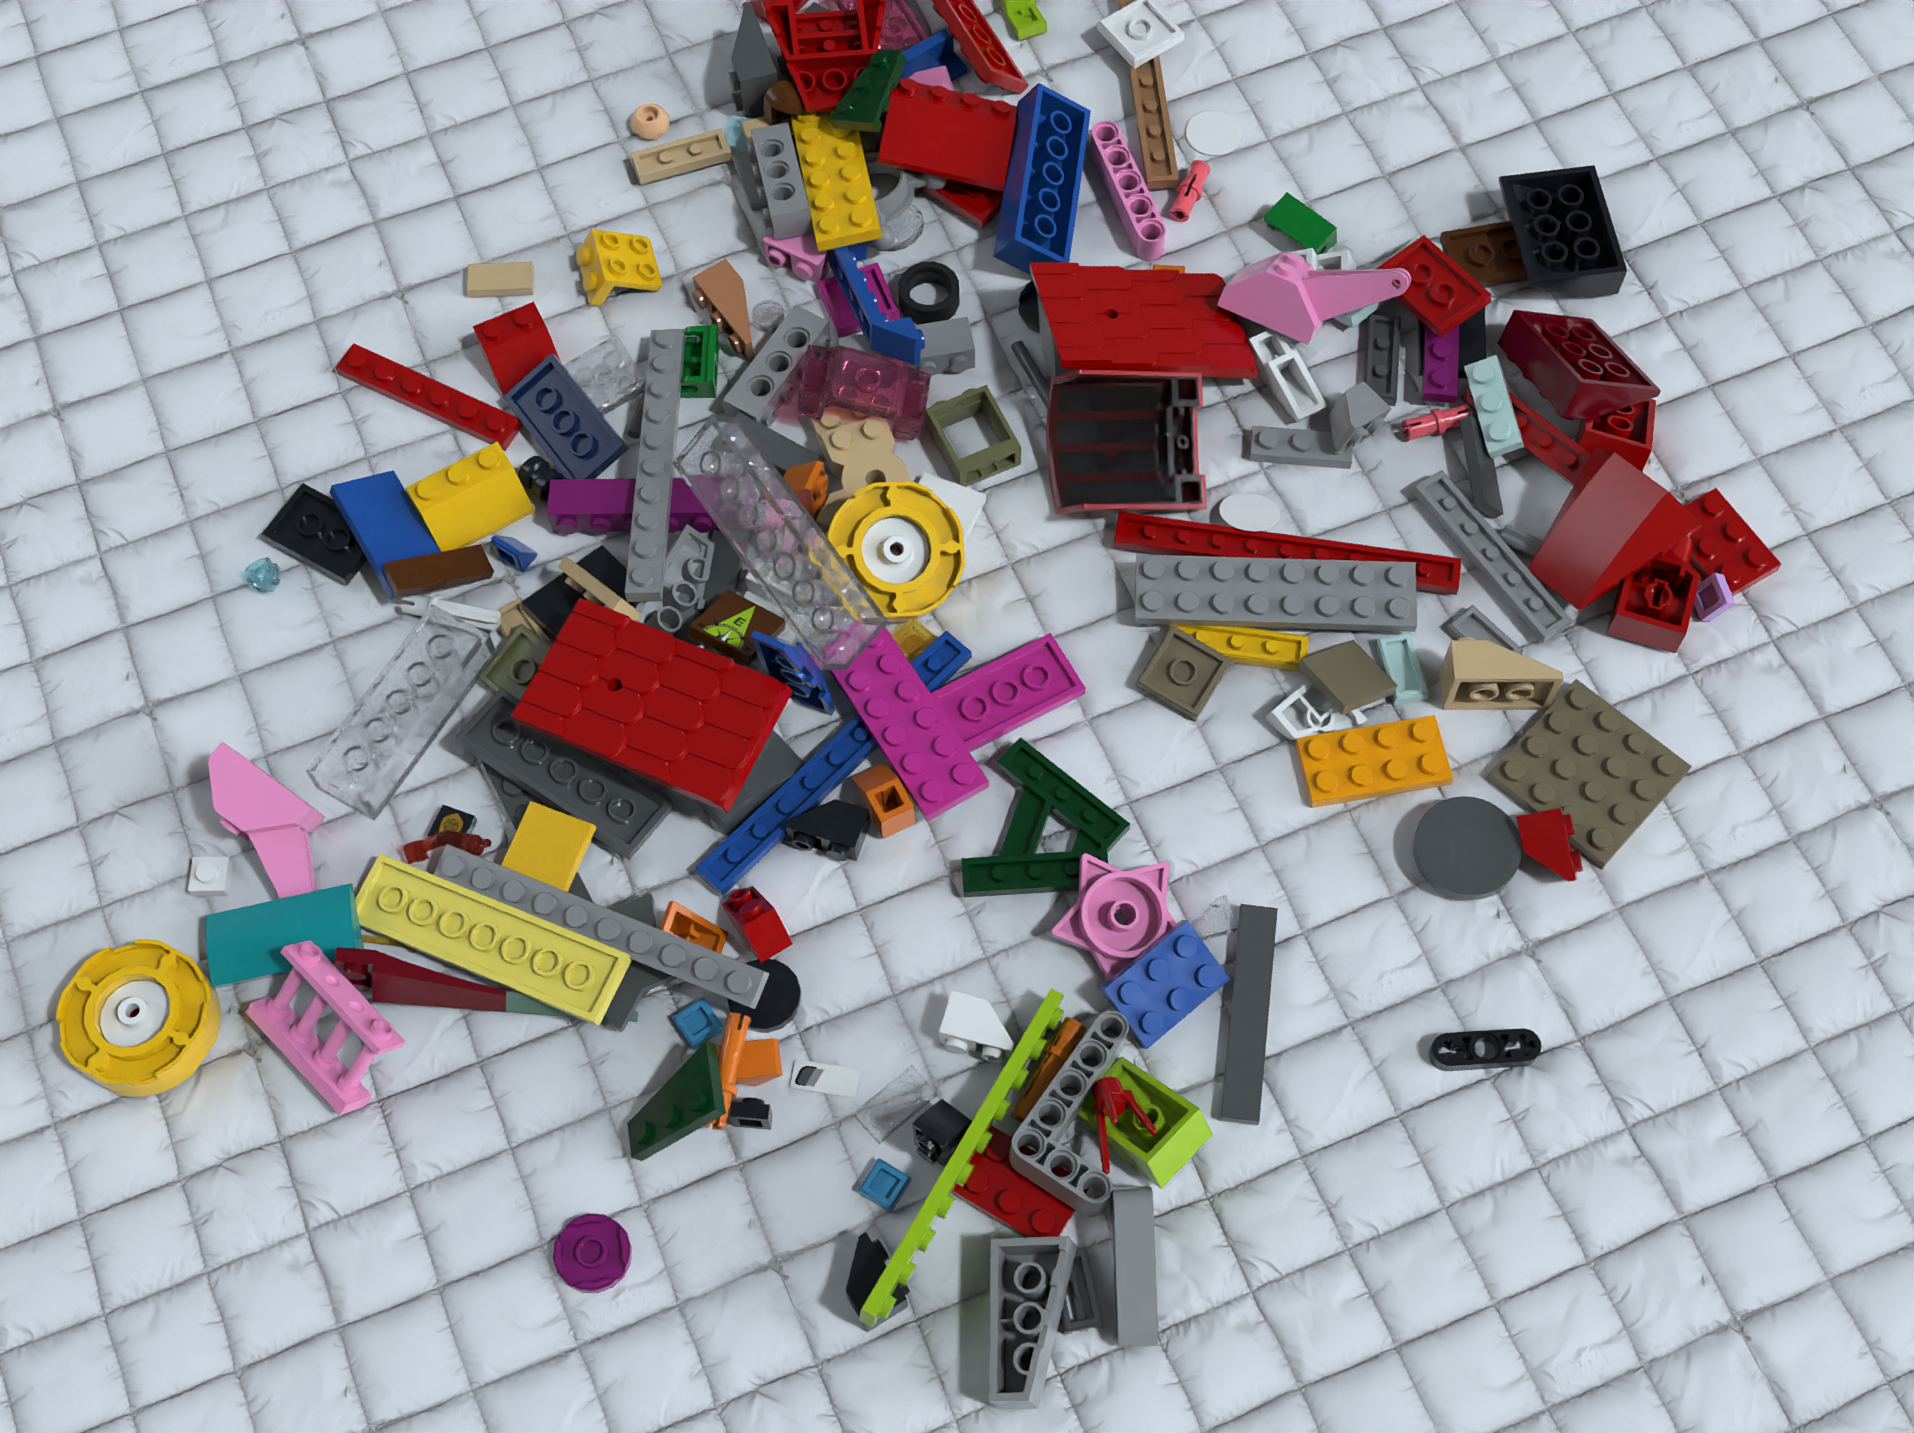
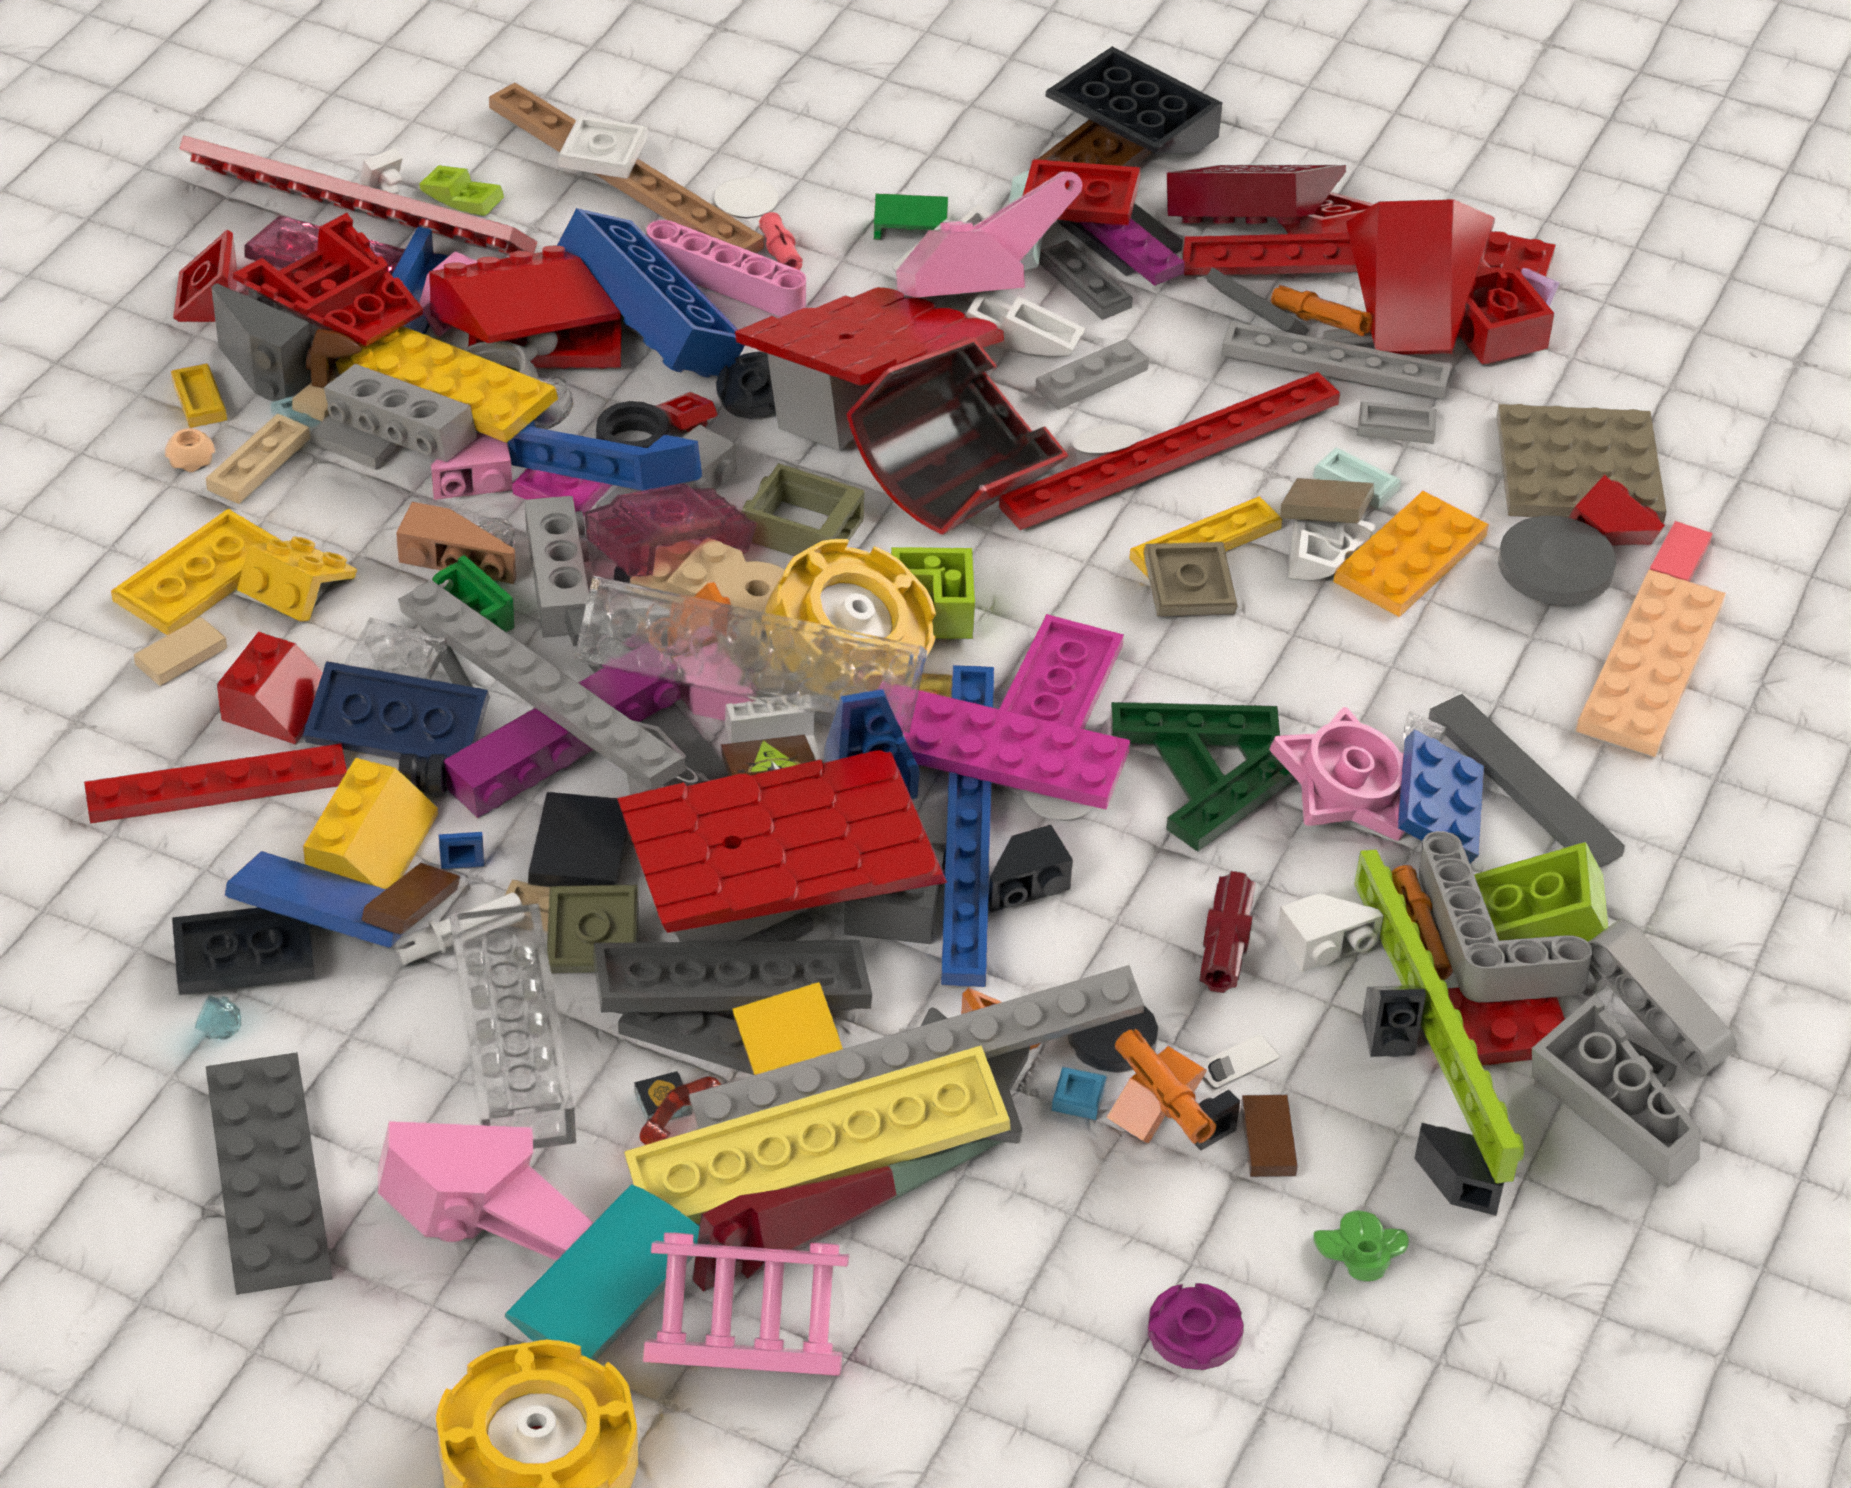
camera: 45 degrees left, 20 degrees down
(194, 706) = (268, 1174): none -> dark grey plate
(210, 876) = (457, 1295): white plate -> none
(562, 222) = (191, 574): none -> yellow tile
(596, 590) = (598, 803): tan plate -> none
(681, 1105) = (1154, 1141): dark green wing -> none
(698, 79) = (198, 395): none -> yellow tile
(755, 1277) = (1362, 1245): none -> bright green plate
(757, 923) = (1042, 968): red slope -> none
(780, 1152) = (1268, 1135): none -> reddish brown tile
(869, 93) = (425, 292): dark green wing -> none
(885, 799) = (1055, 804): orange slope -> none
(885, 1185) = (1384, 1098): dark azure tile -> none
(895, 1104) = (1325, 1030): clear plate -> none
(911, 977) = (1227, 932): none -> dark red piece
(976, 298) = (688, 411): none -> red plate
(999, 559) = (950, 583): none -> lime brick
(1032, 371) = (809, 450): dark grey bar -> none
(1112, 1102) = (1506, 892): red plant -> none
(1276, 593) = (1198, 477): light grey plate -> none
(1357, 415) = (1120, 318): light grey slope -> none
(1435, 422) = (1182, 296): coral pin -> none
(1454, 983) = (1651, 663): none -> light nougat plate
(1494, 406) = (1223, 252): light aqua plate -> none
(1494, 678) = (1444, 430): tan slope -> none
(1511, 1037) = (1724, 704): black beam -> none
(1518, 497) = (1310, 306): none -> orange pin
(1577, 908) = (1682, 551): none -> coral tile

